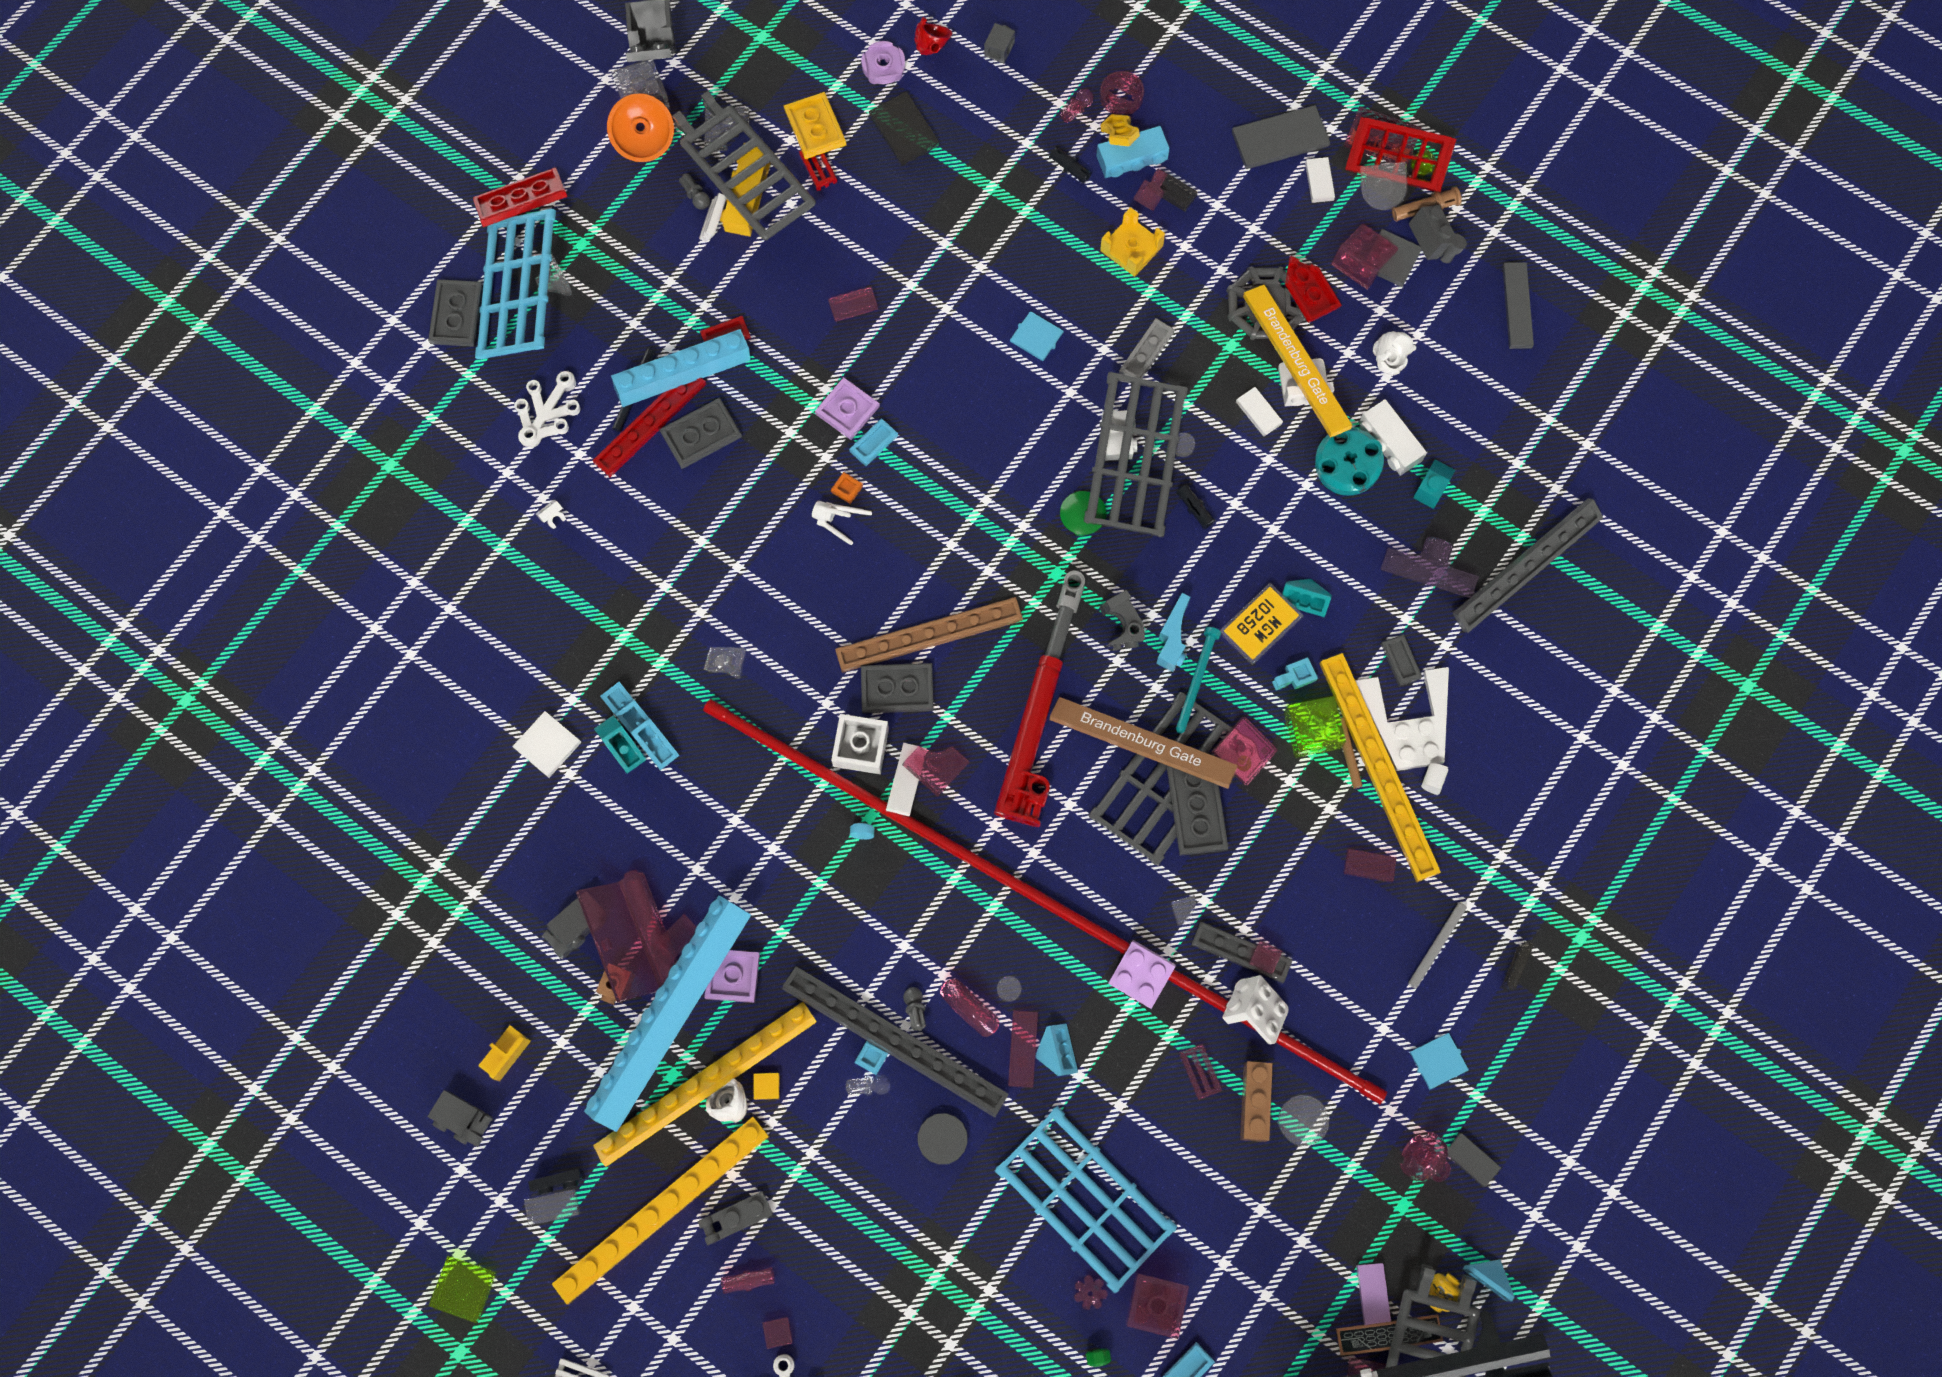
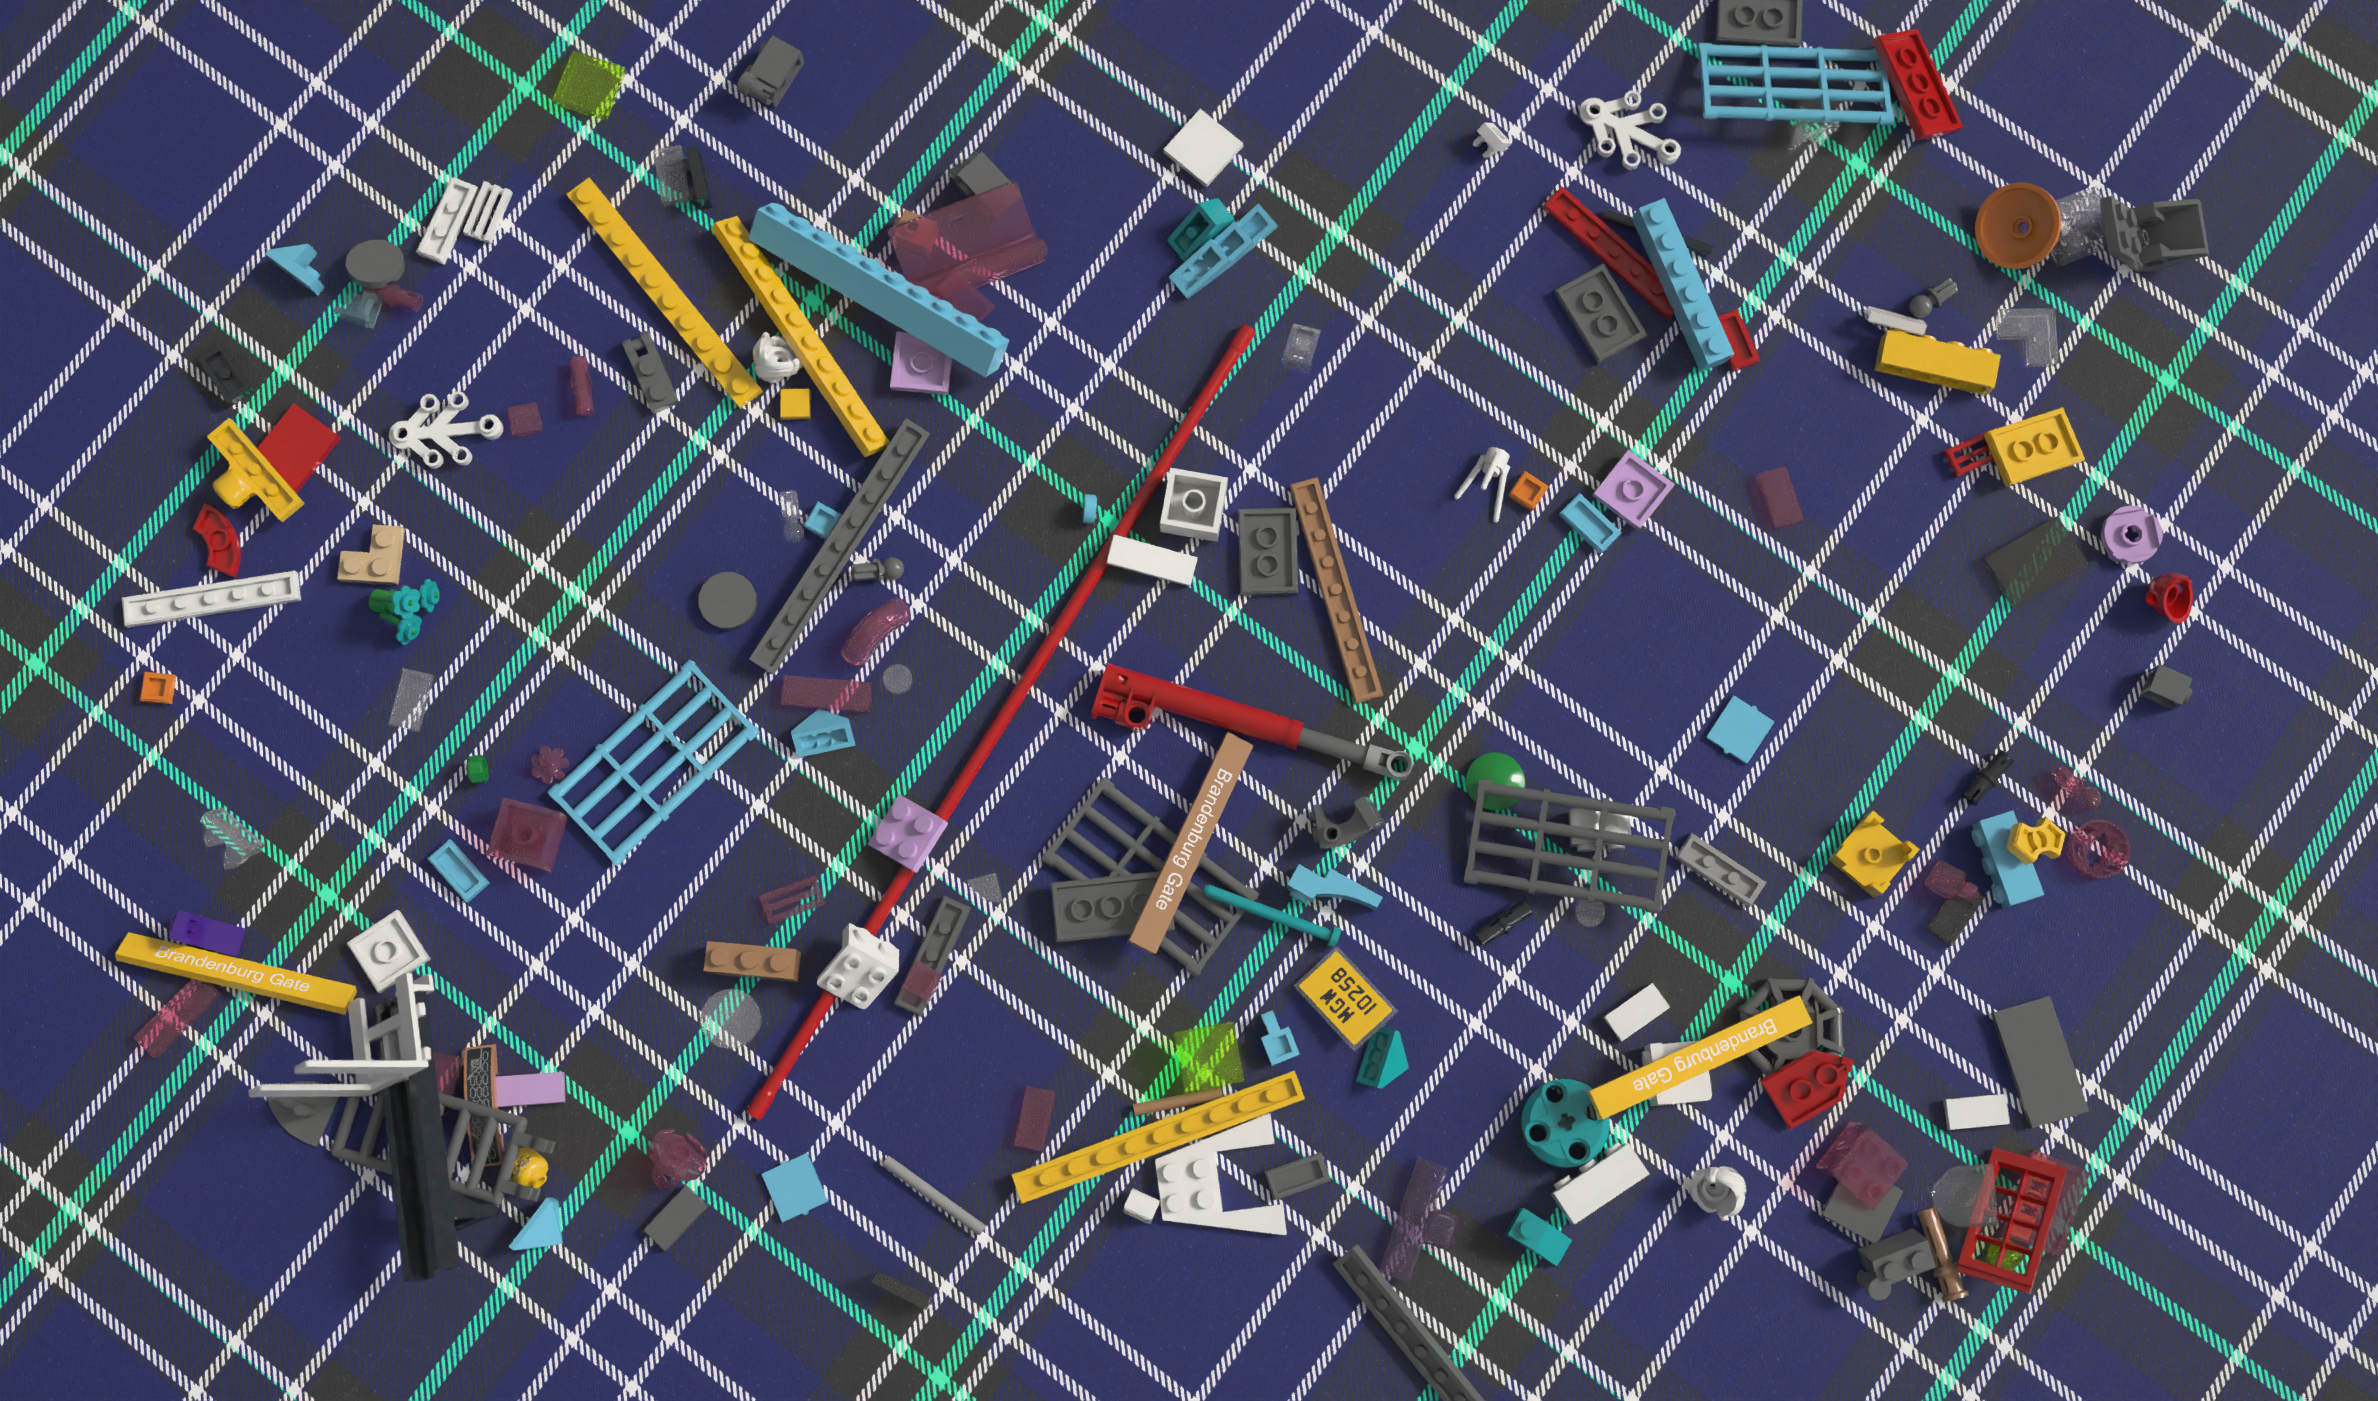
camera: 90 degrees right, 5 degrees up
(504, 1053) = (843, 116): yellow panel -> none
(725, 187) = (1978, 385): dark grey bar -> none
(935, 769) = (1163, 596): clear pink tile -> none
(1246, 748) = (1180, 969): clear pink tile -> none
(1517, 305) = (1795, 1370): dark grey tile -> none

